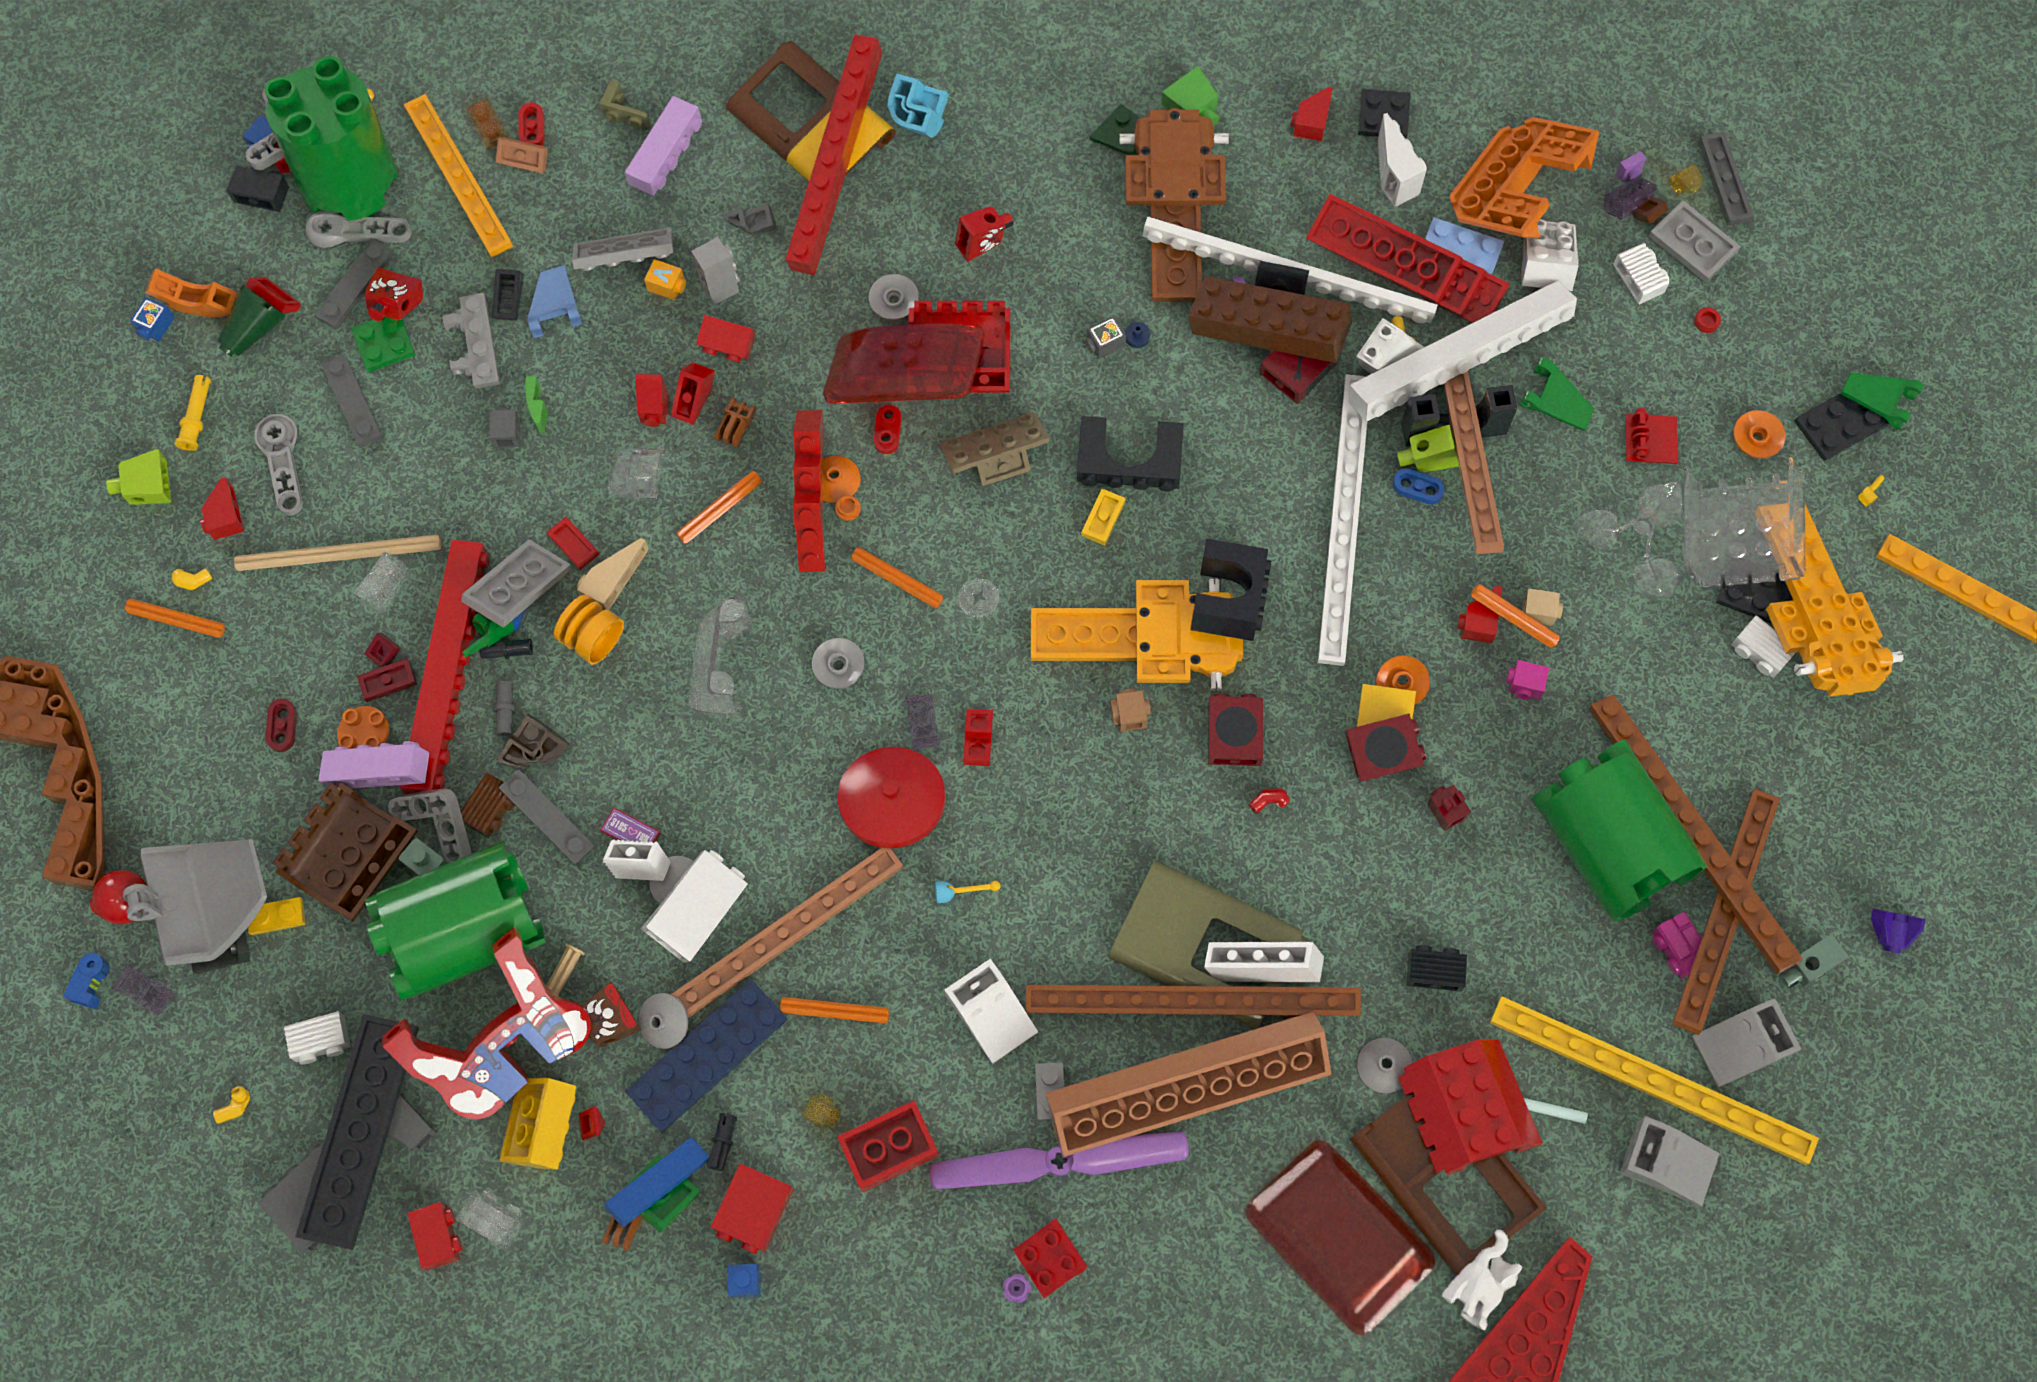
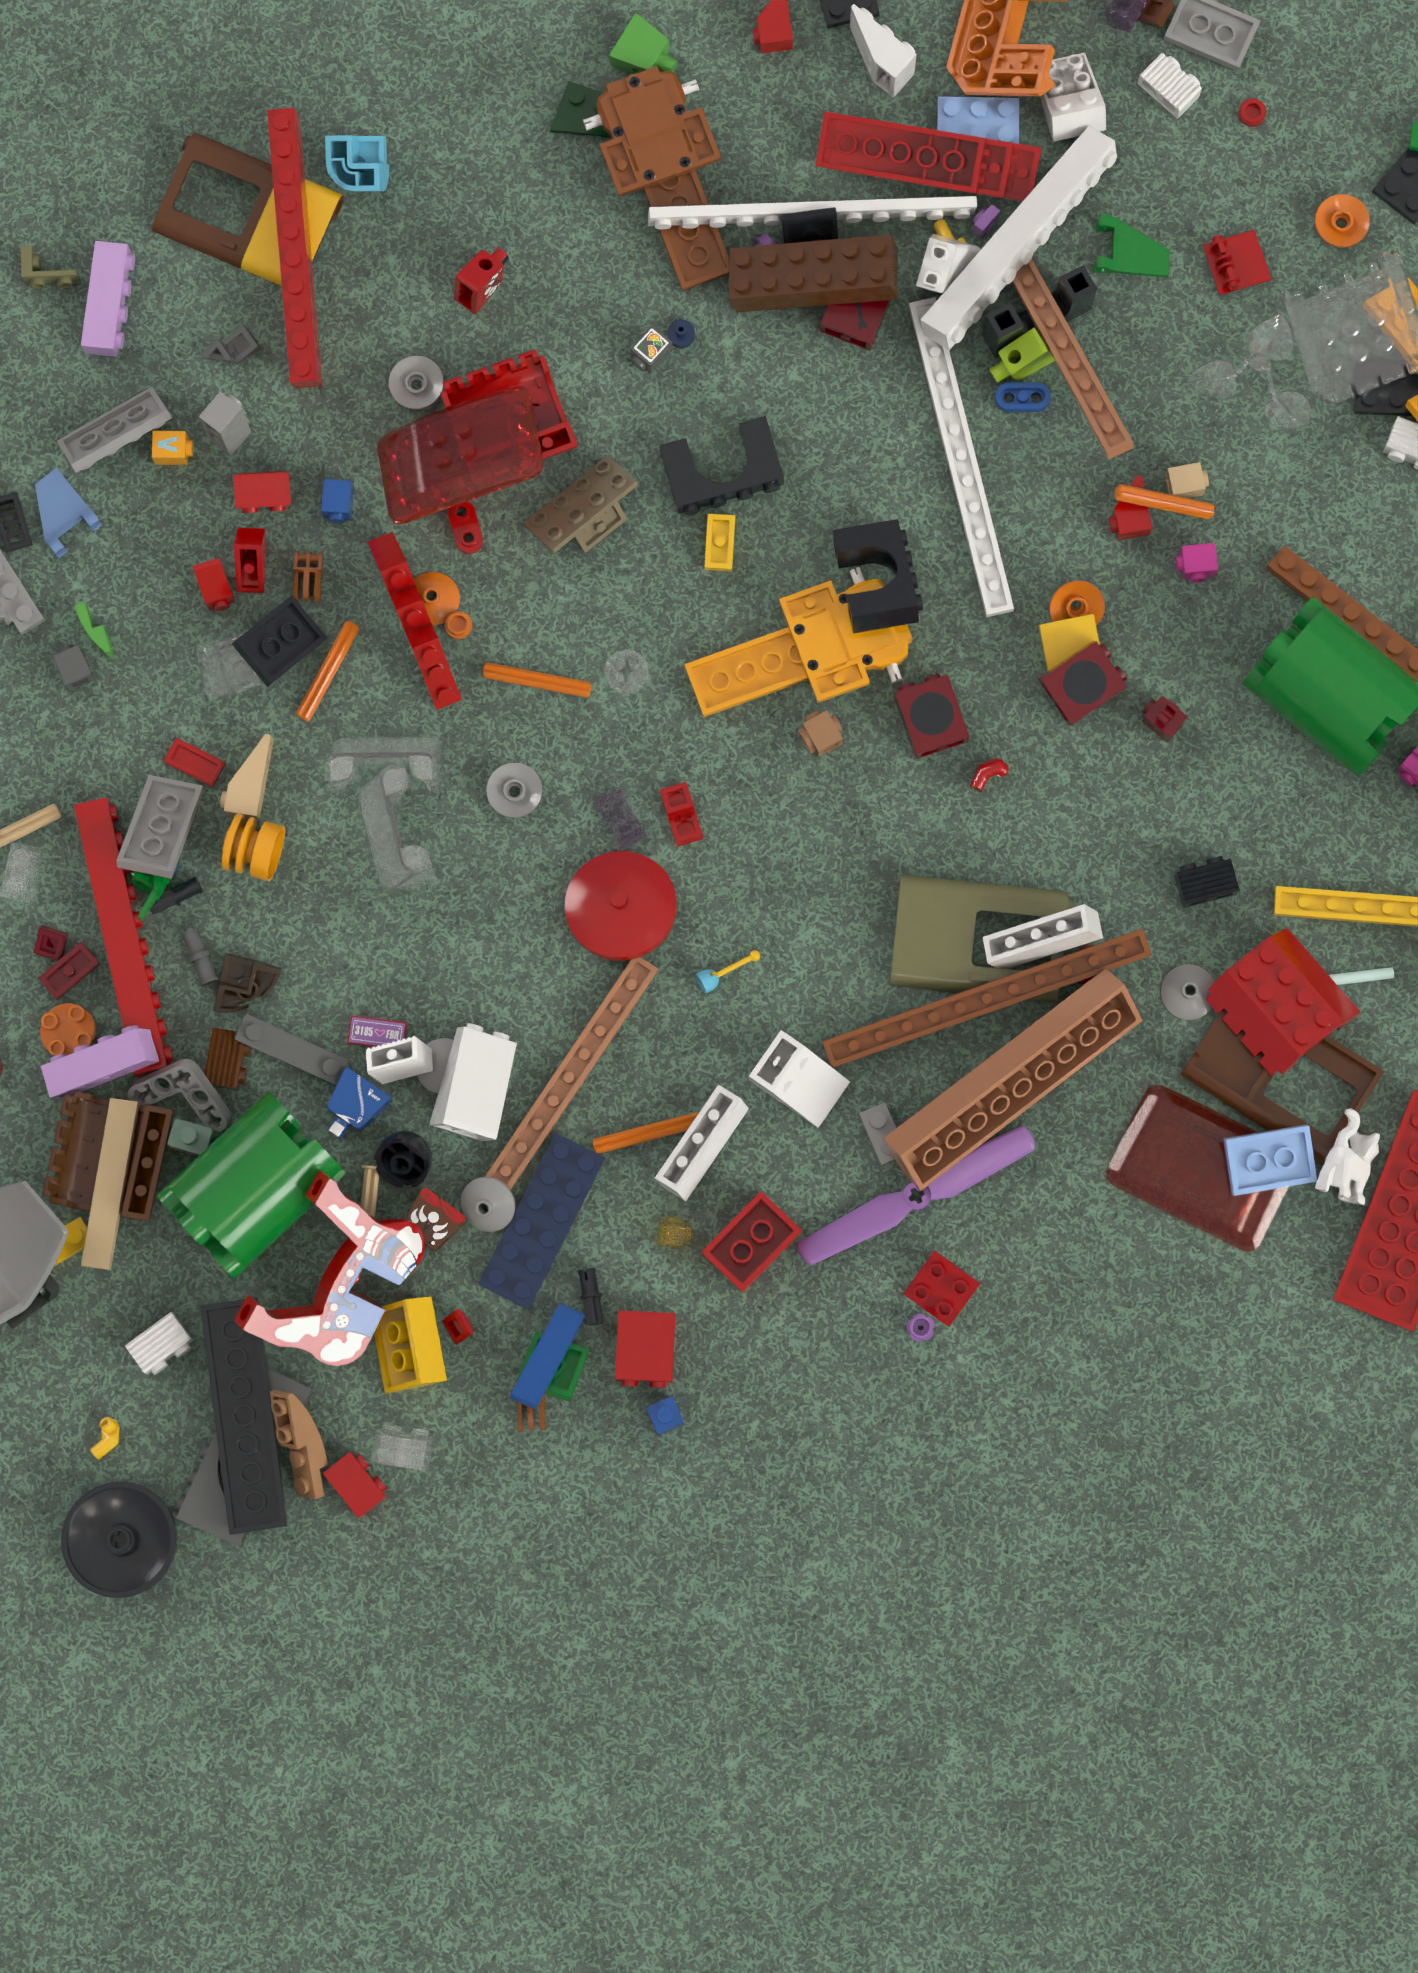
camera: 20 degrees left, 10 degrees up
(199, 1204) = (119, 1539): none -> black dish
(335, 876) = (110, 1184): none -> tan tile
(400, 1167) = (299, 1433): none -> medium nougat slope
(583, 886) = (355, 1103): none -> blue torso
(603, 950) = (403, 1159): none -> black cylinder
(686, 464) = (279, 641): none -> black plate
(766, 605) = (348, 754): none -> clear windscreen
(786, 369) = (337, 500): none -> blue brick
(878, 1036) = (702, 1143): none -> white brick
(1407, 1251) = (1270, 1160): none -> light blue plate
(1438, 329) = (985, 221): none -> medium lavender plate

